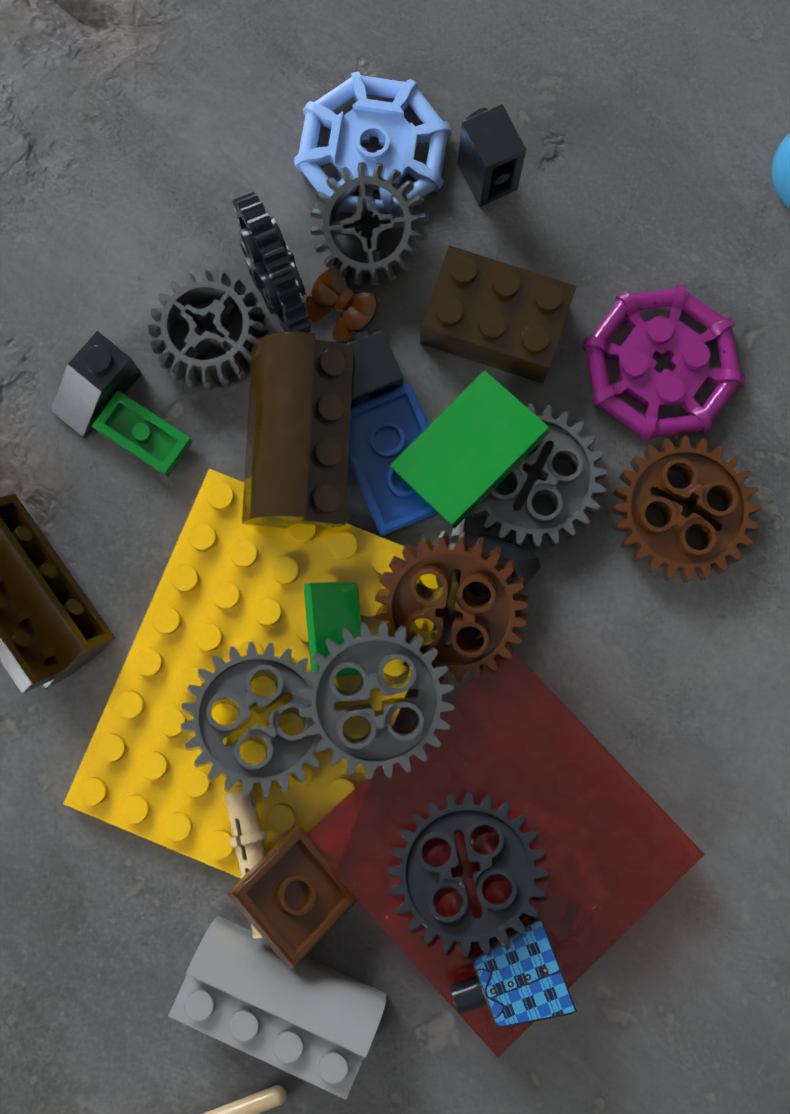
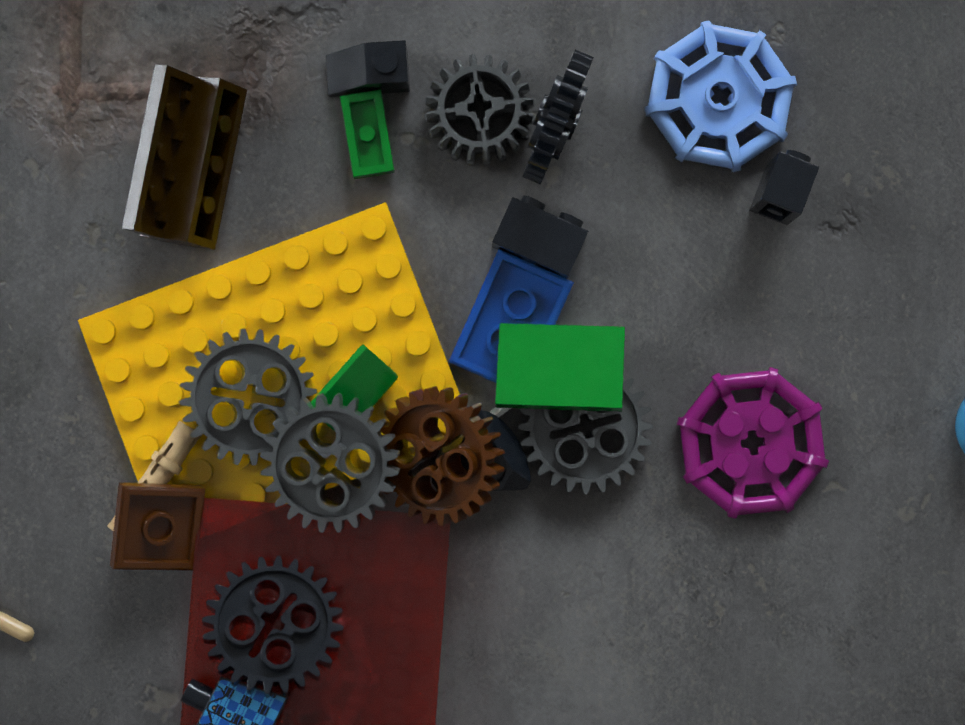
camera: 50 degrees right, 5 degrees up
(291, 1018) = (83, 600): light grey brick -> none
(298, 431) = (462, 242): dark brown brick -> none
(333, 292) = (588, 168): reddish brown piece -> none
(367, 203) = (667, 138): dark grey gear -> none
(496, 314) = (675, 296): dark brown brick -> none
(702, 474) = (696, 541): reddish brown gear -> none

